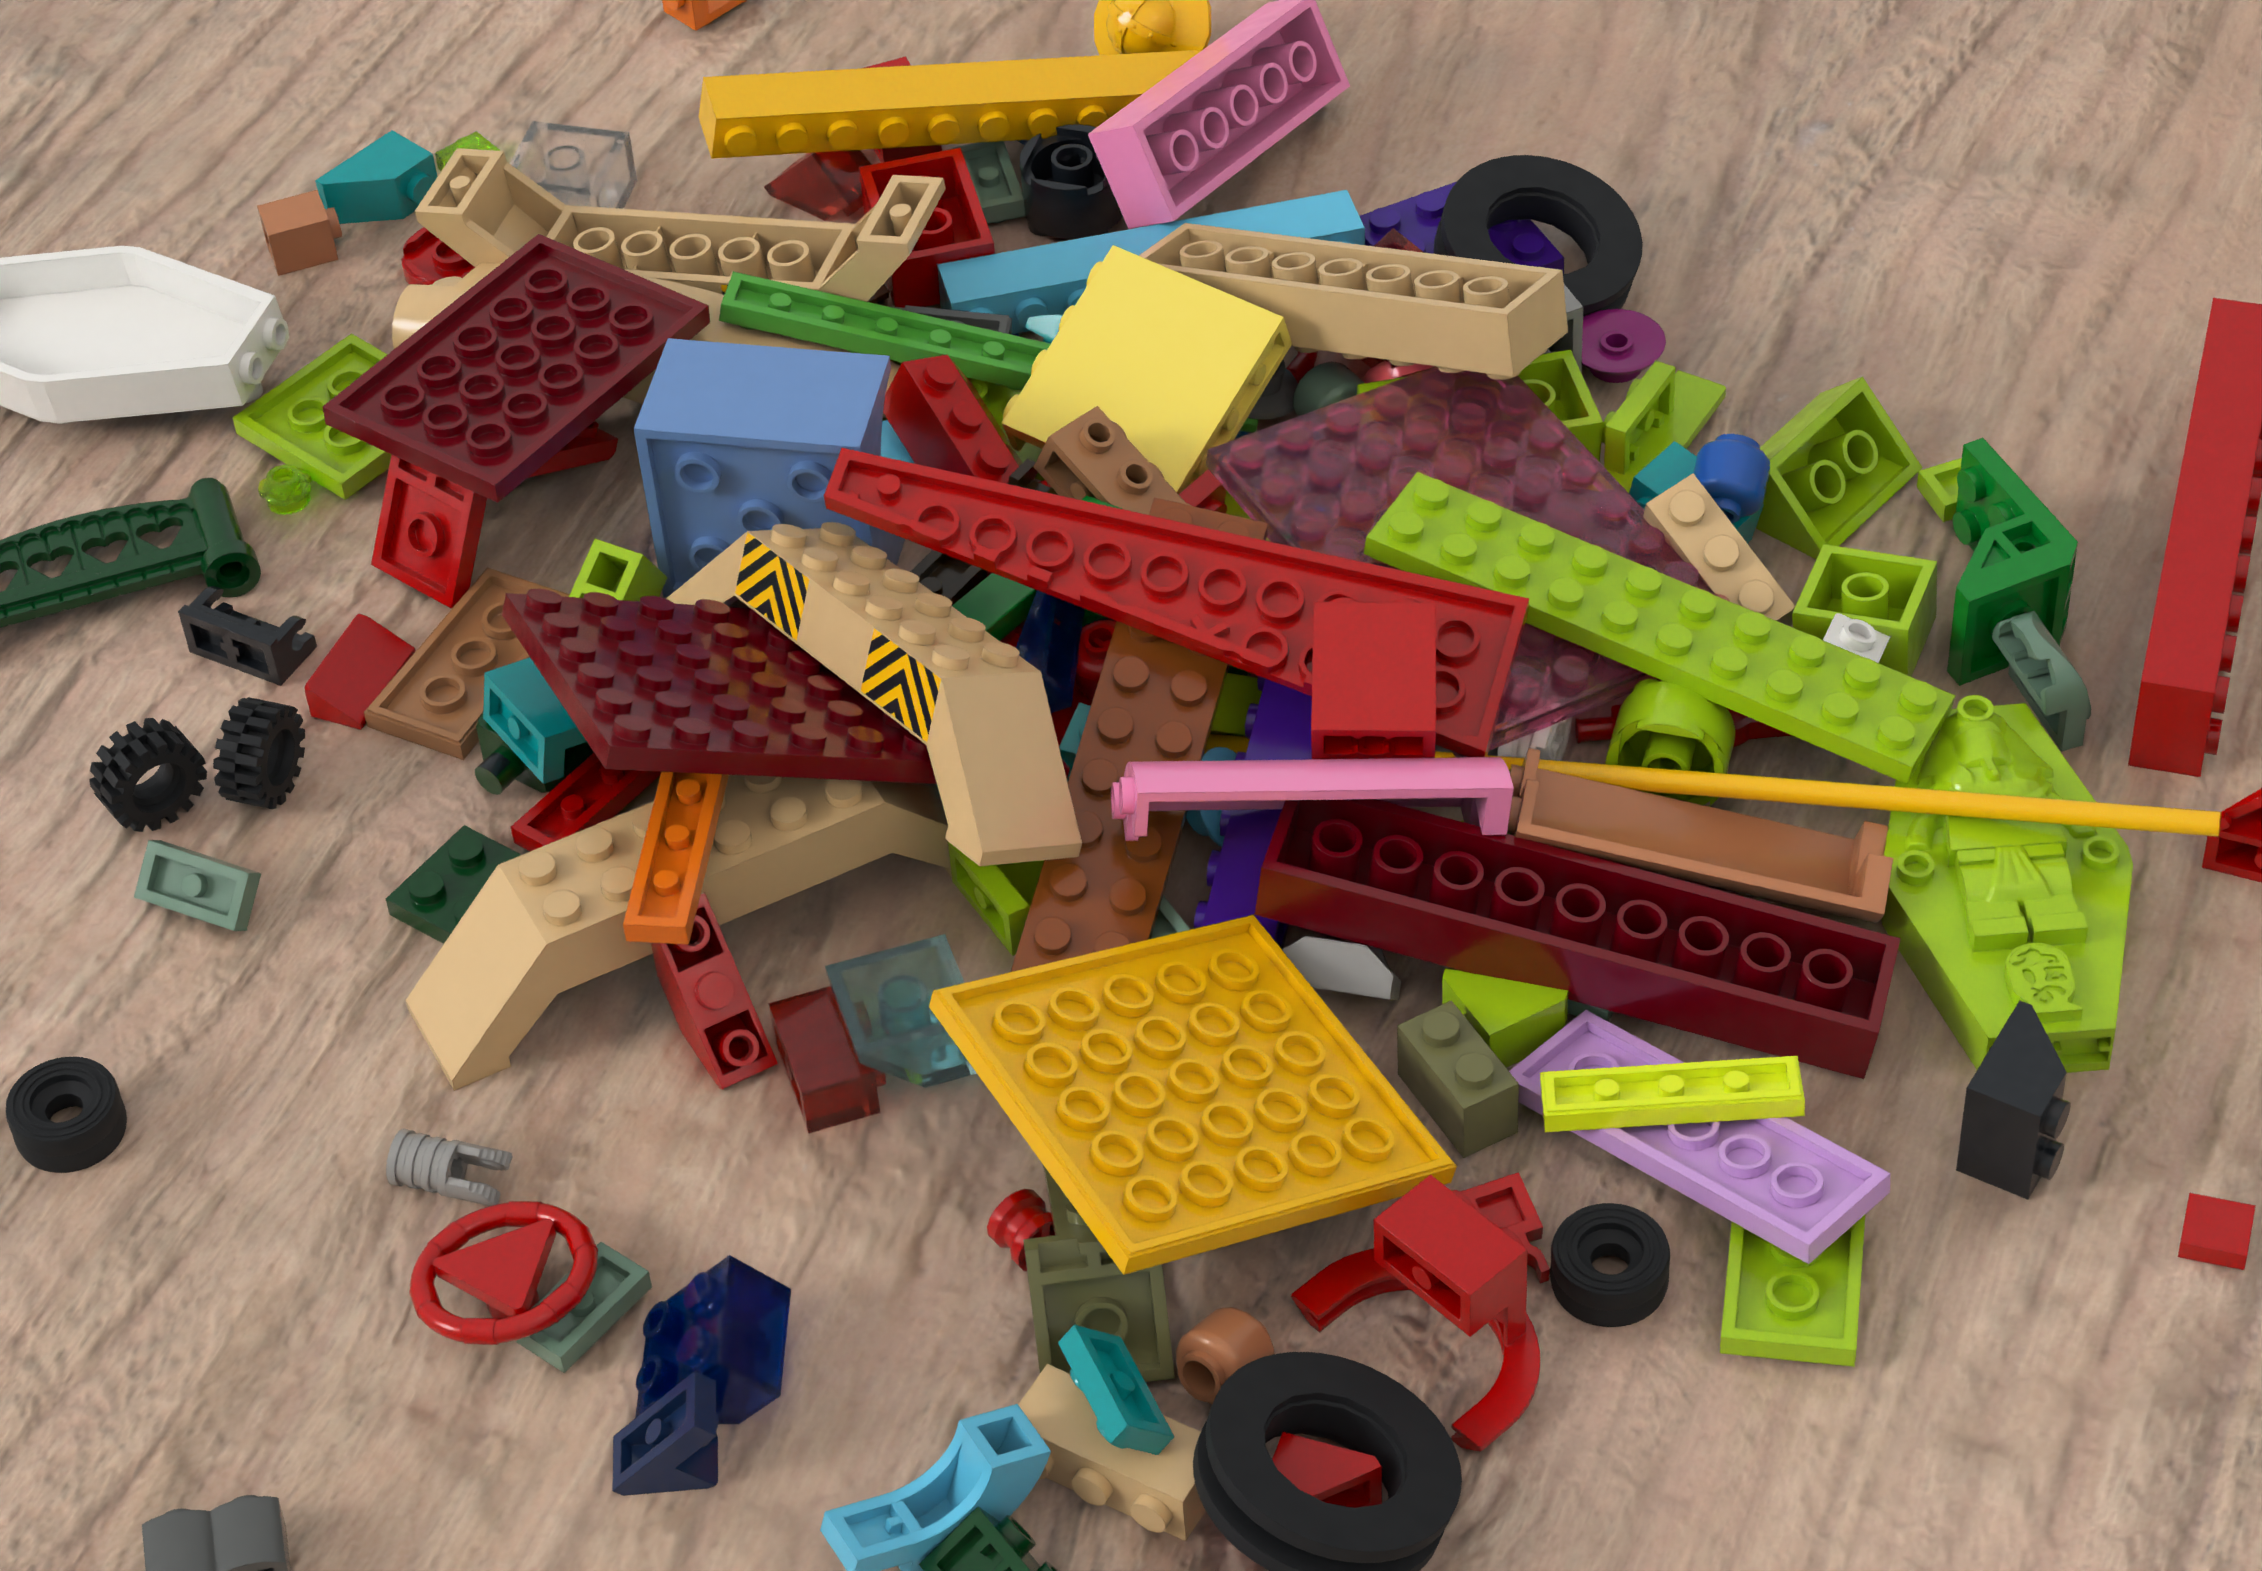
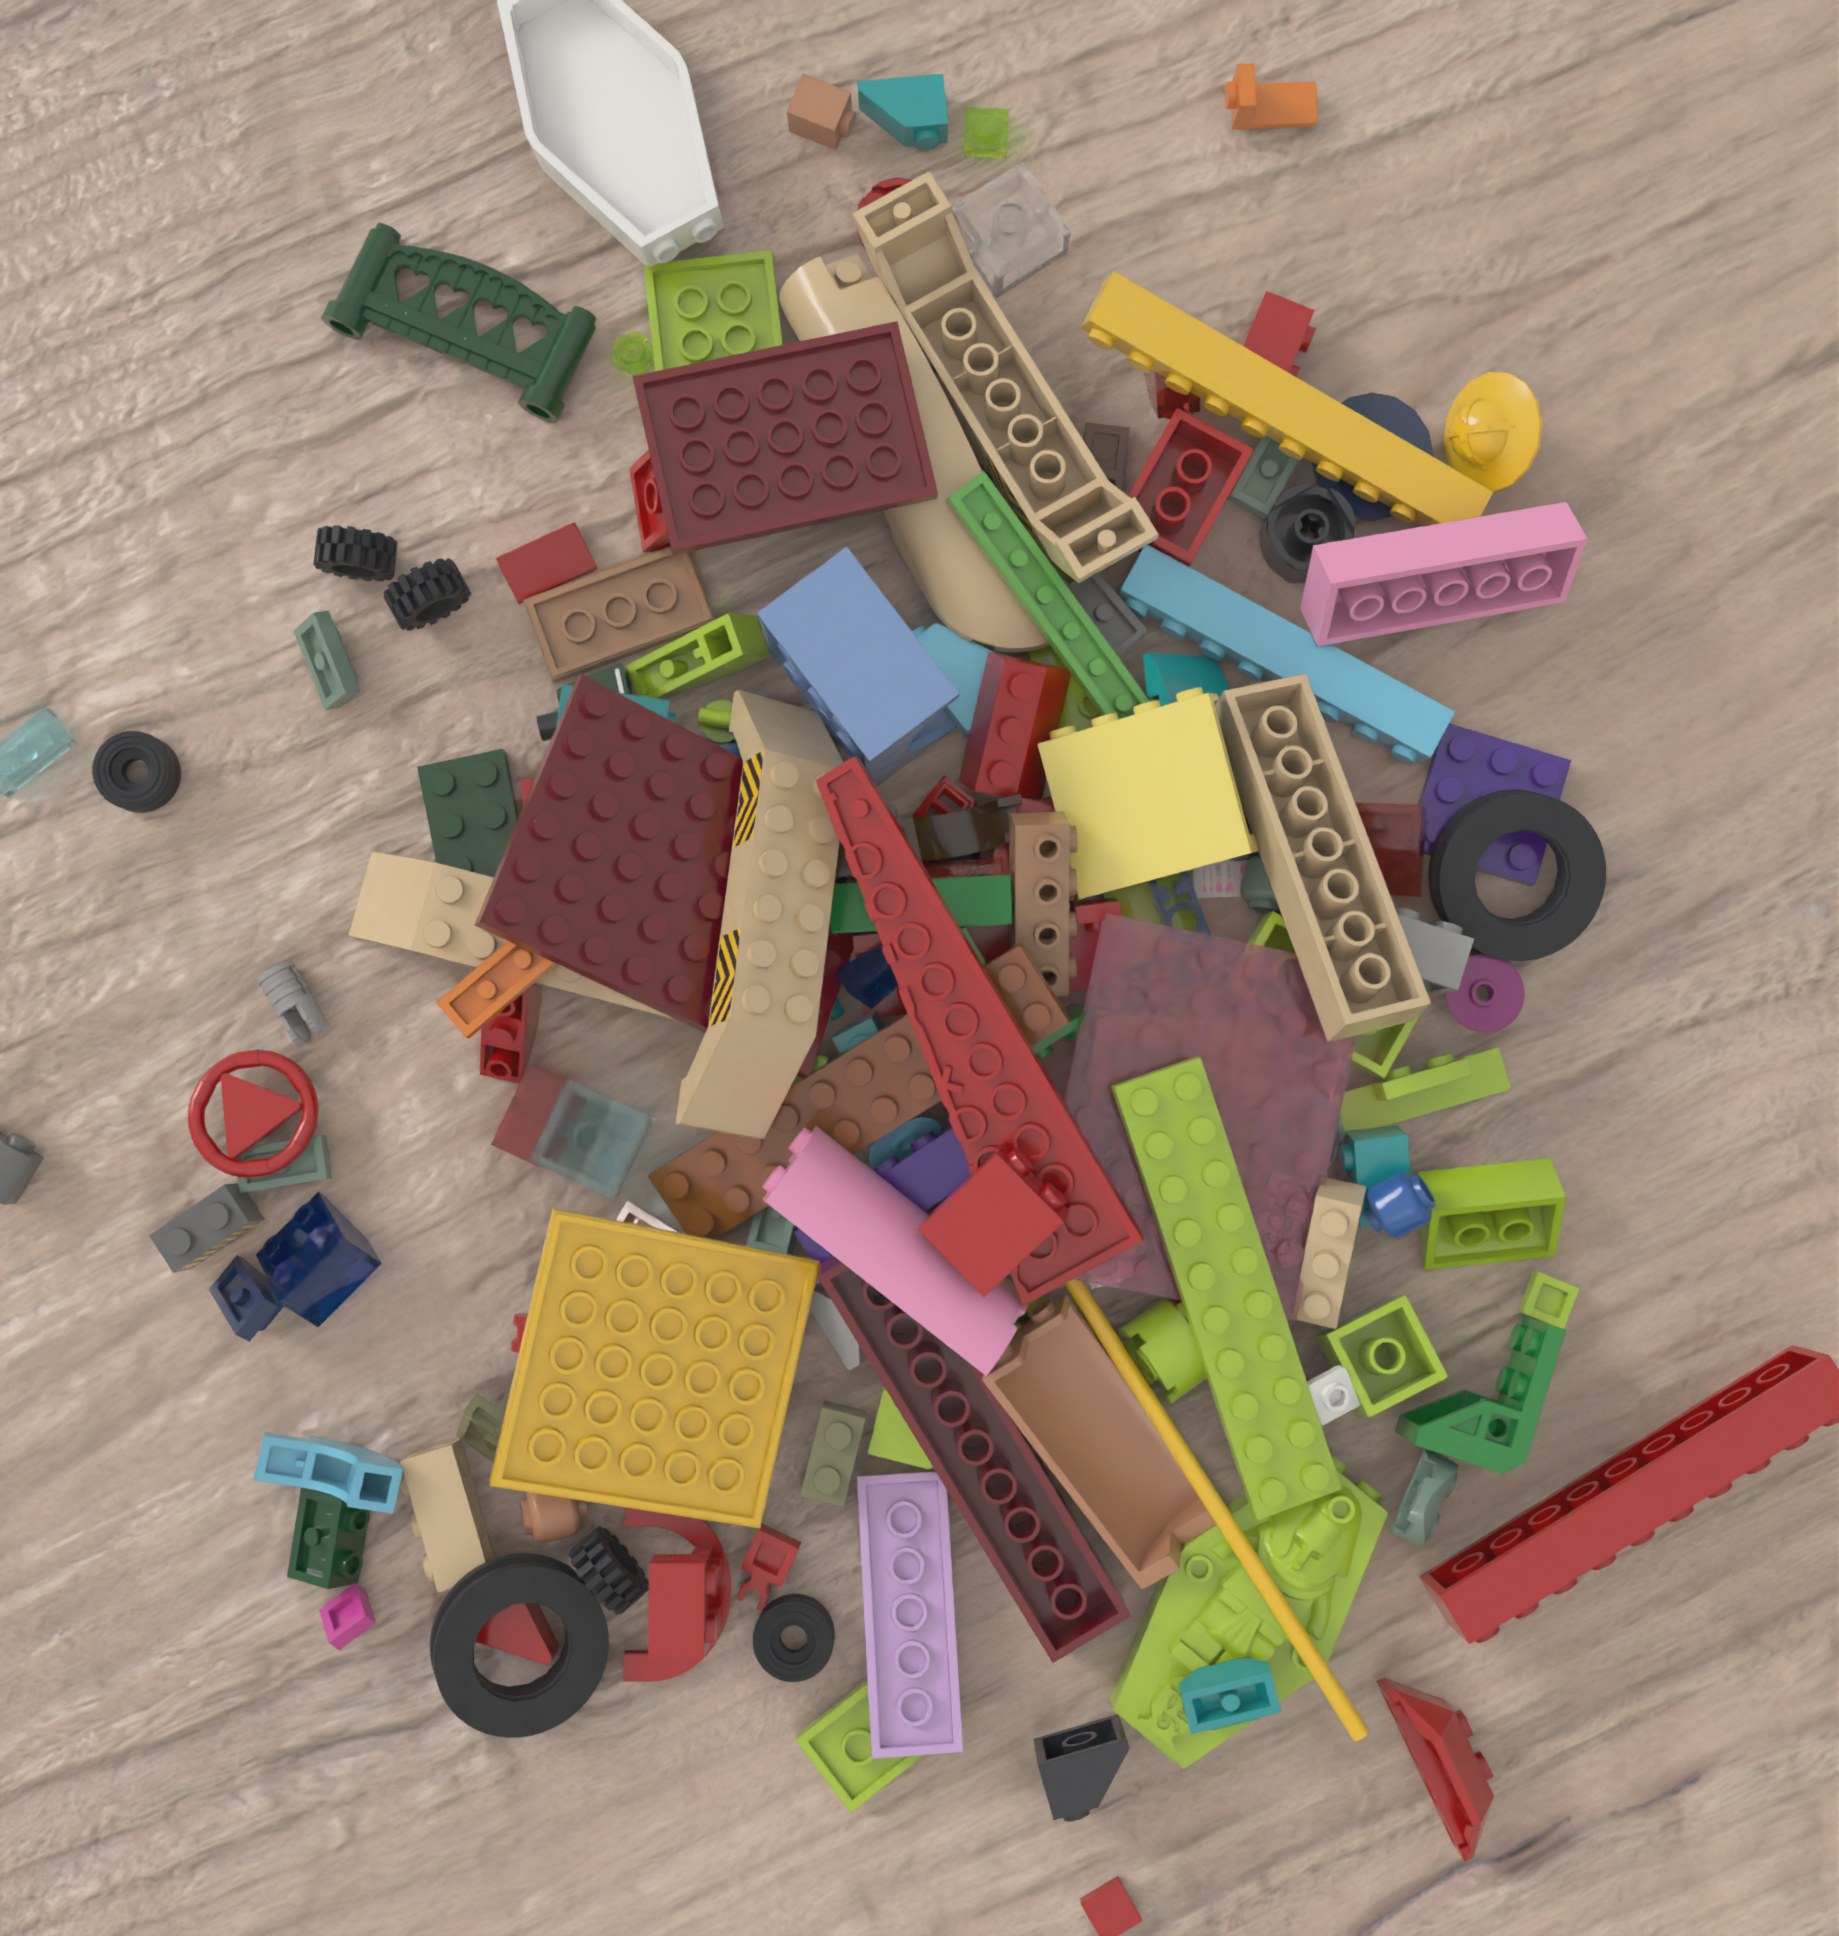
camera: 40 degrees right, 40 degrees up
(243, 640) = (510, 469): black hinge -> none
(554, 1413) = (206, 1227): none -> dark grey brick
(1115, 1390) = (453, 1511): teal plate -> none
(1349, 1326) = (609, 1570): none -> black tyre
(1672, 1094) = (915, 1587): neon yellow tile -> none
(2076, 908) = (1228, 1694): none -> teal slope

